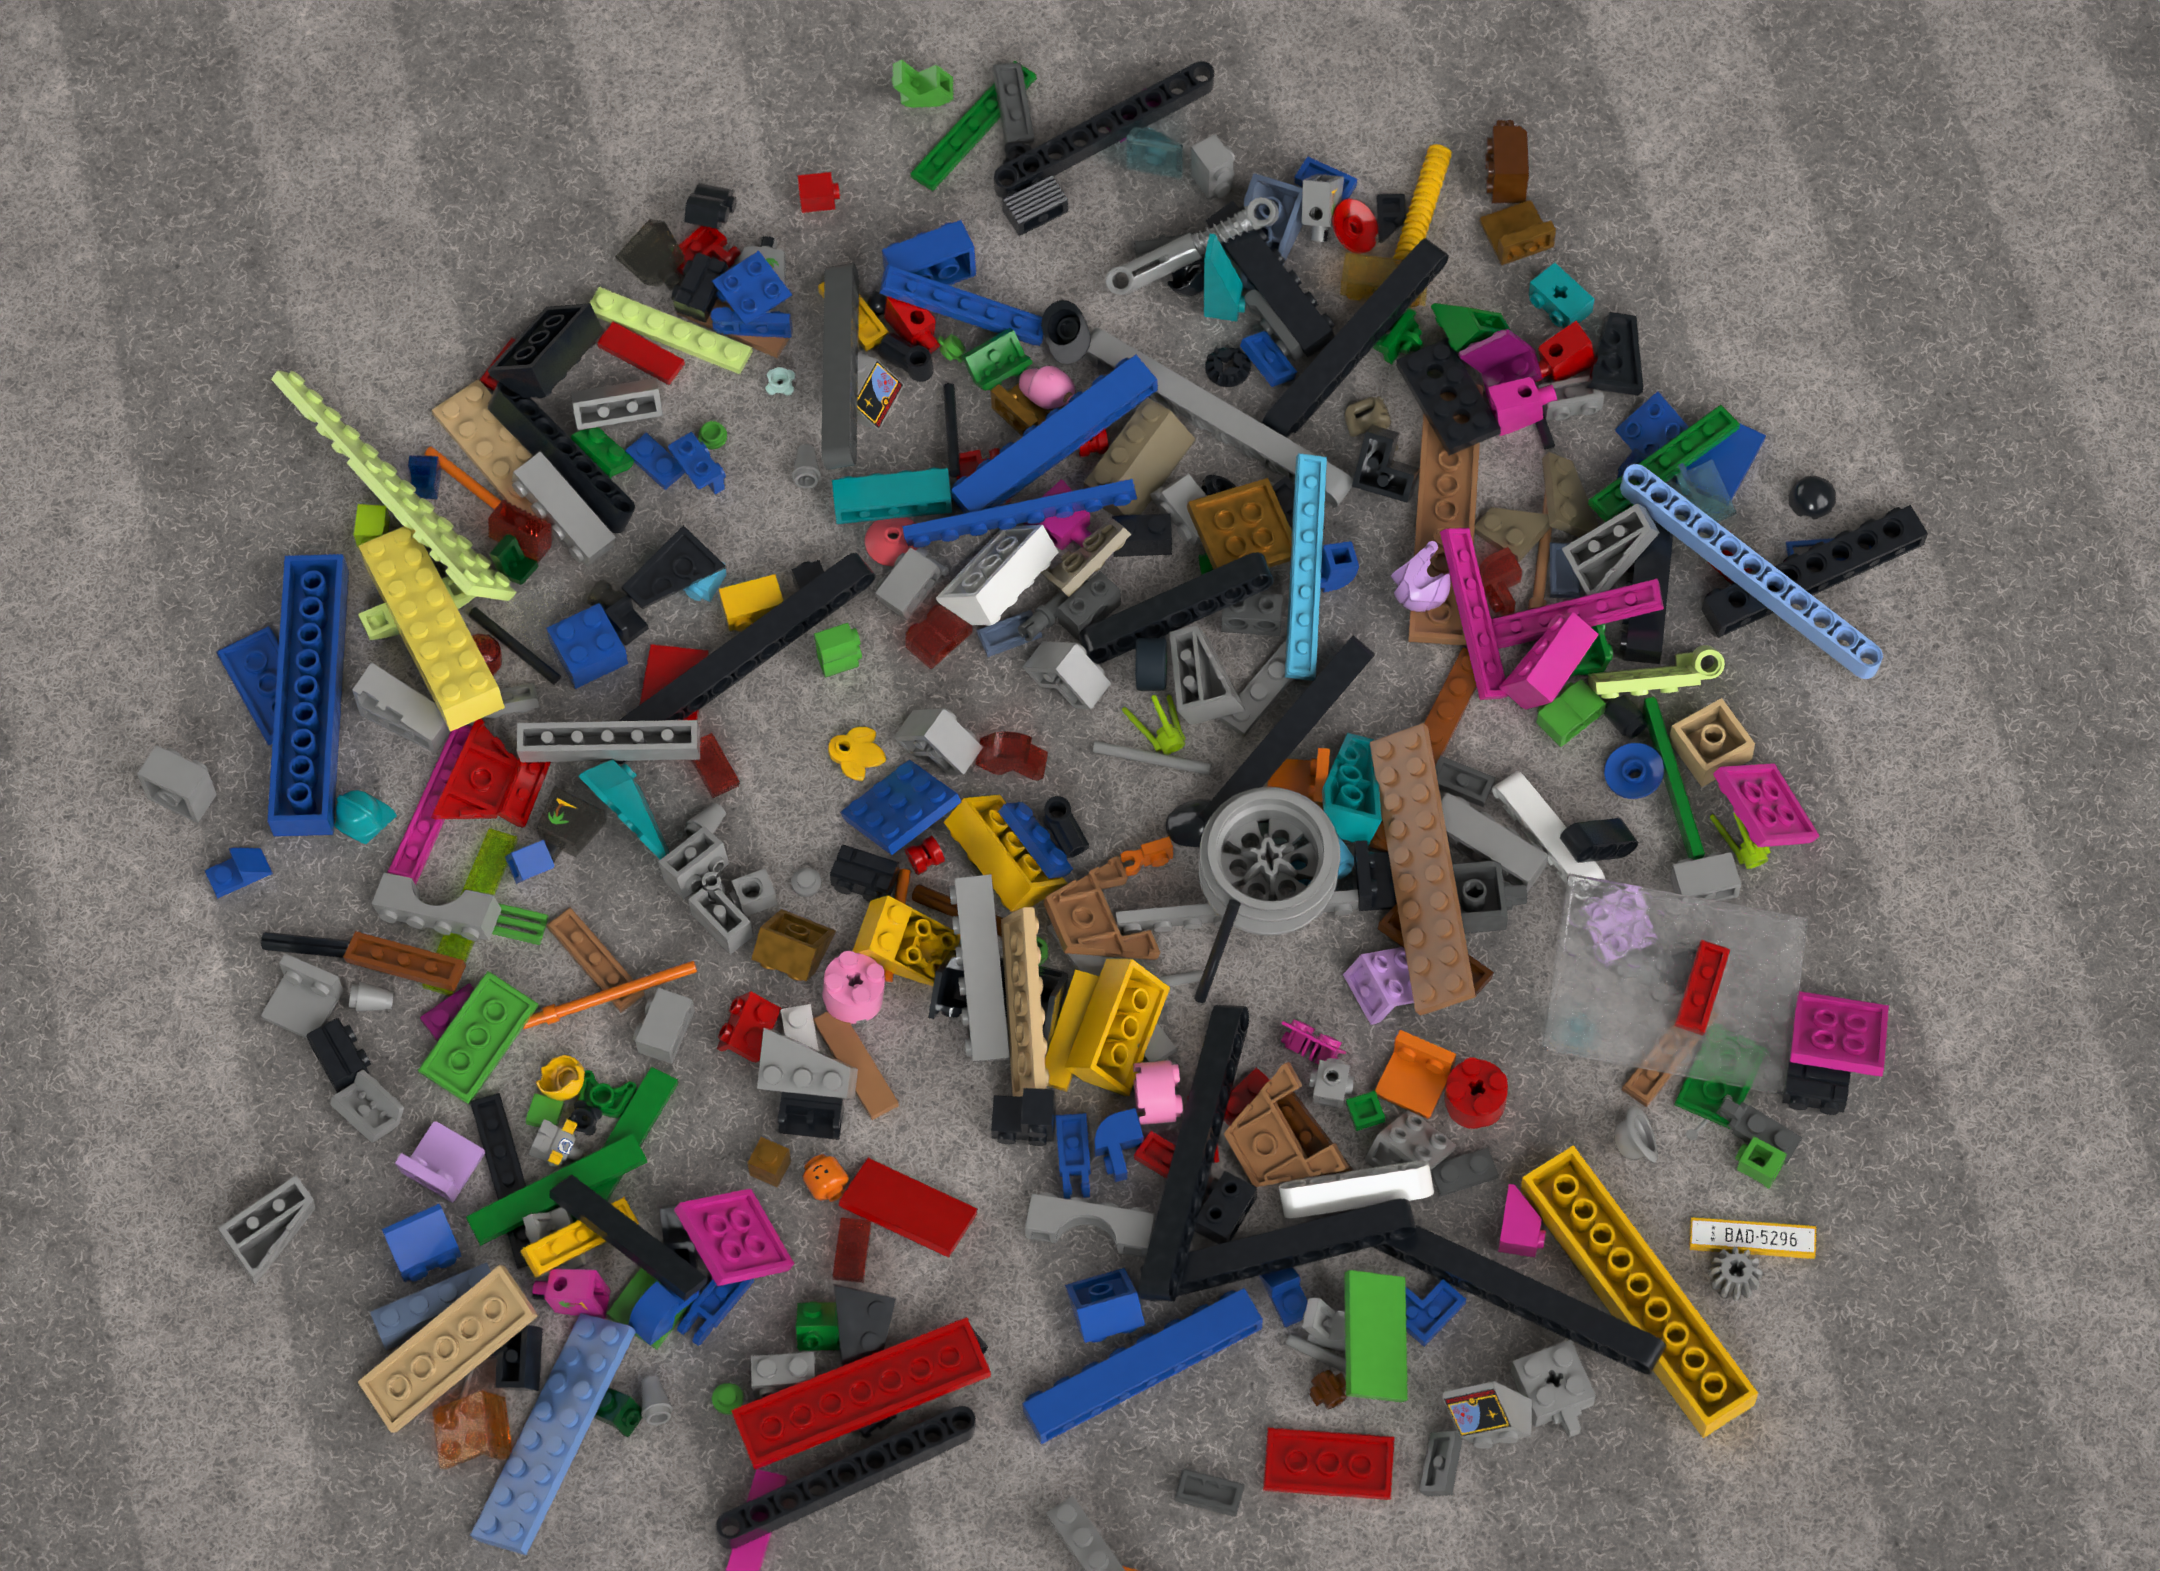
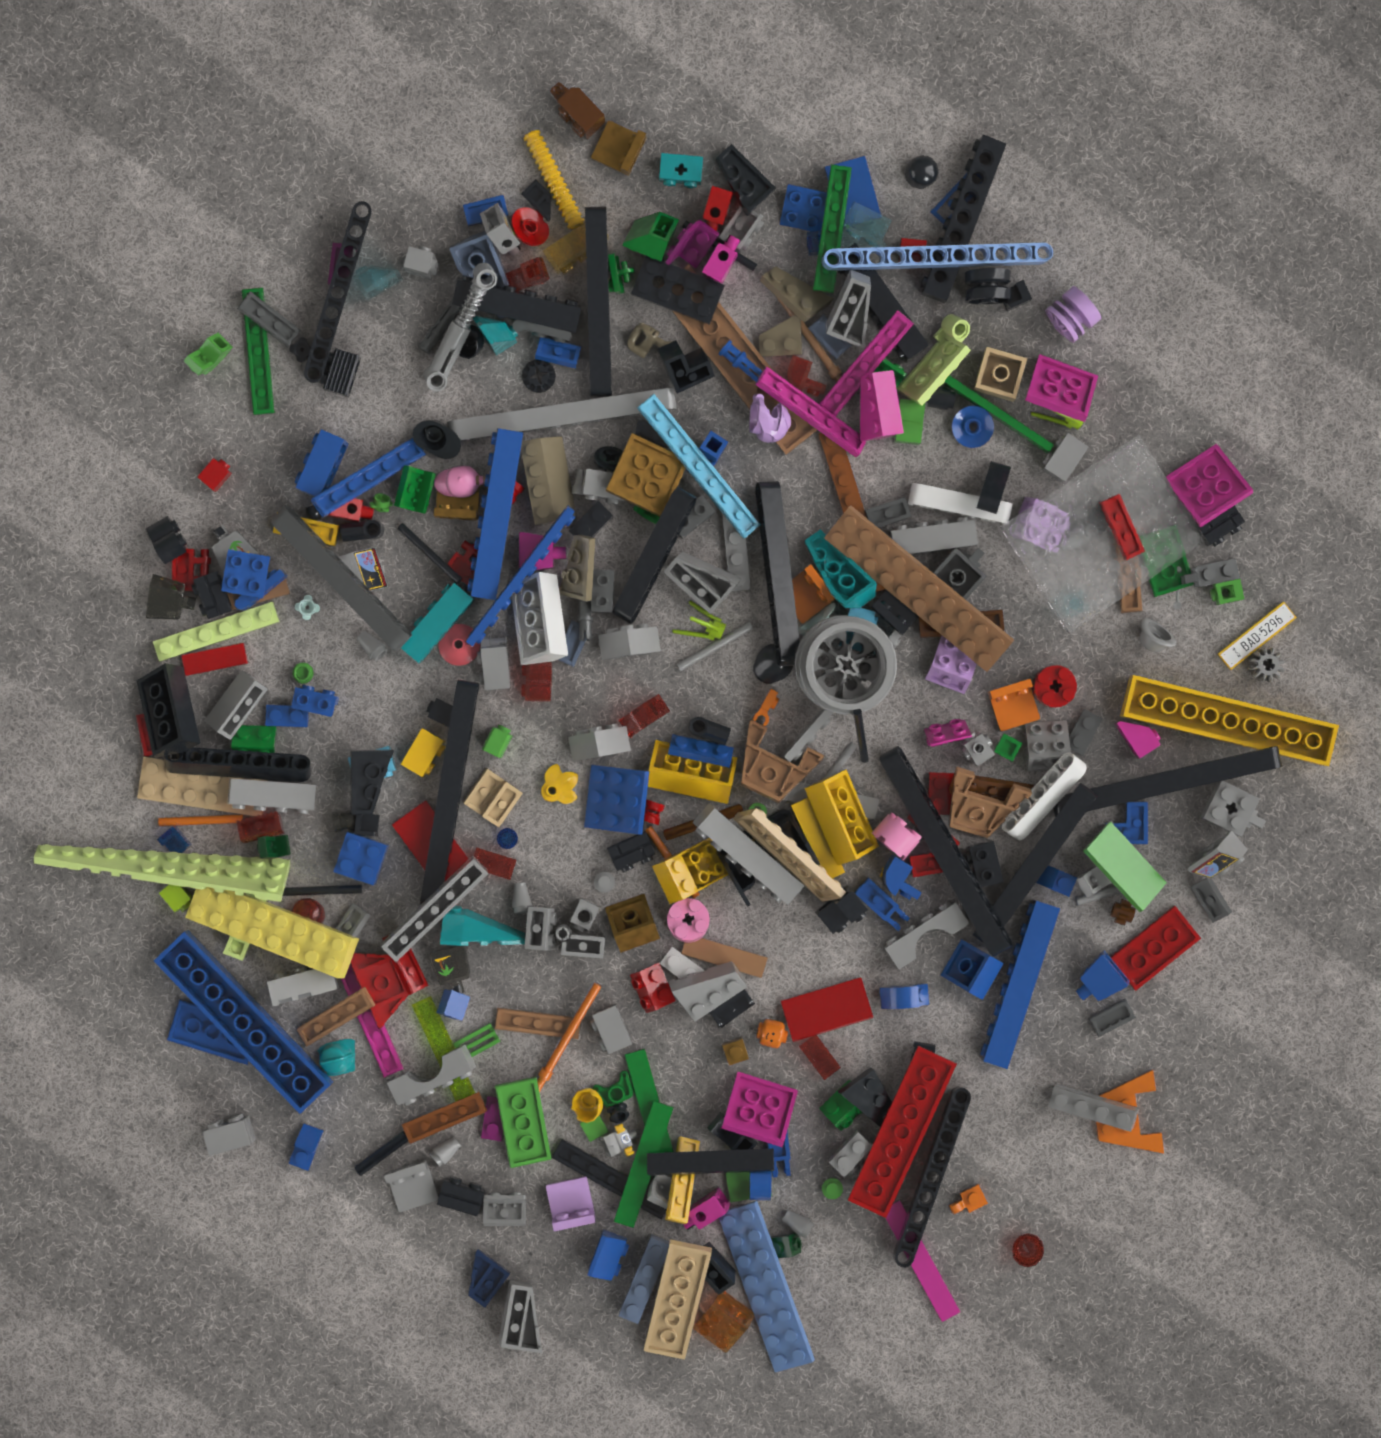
camera: 45 degrees left, 25 degrees up
(275, 1161) = (486, 1278): none -> dark blue wing
(402, 769) = (335, 1016): none -> medium nougat tile
(751, 756) = (507, 838): none -> clear blue plate
(777, 706) = (492, 797): none -> tan slope
(865, 1548) = (971, 1199): none -> orange plate
(1005, 1263) = (904, 996): none -> blue brick
(1151, 664) = (668, 597): black wheel -> none
(1238, 1436) = (1102, 978): none -> blue torso
(1314, 264) = (529, 274): none -> clear red brick
(1446, 506) = (737, 361): none -> blue pin
(1779, 647) = (988, 286): none -> black wheel
(1801, 690) = (1020, 296): none -> black panel
(1846, 747) = (1076, 311): none -> lavender wheel

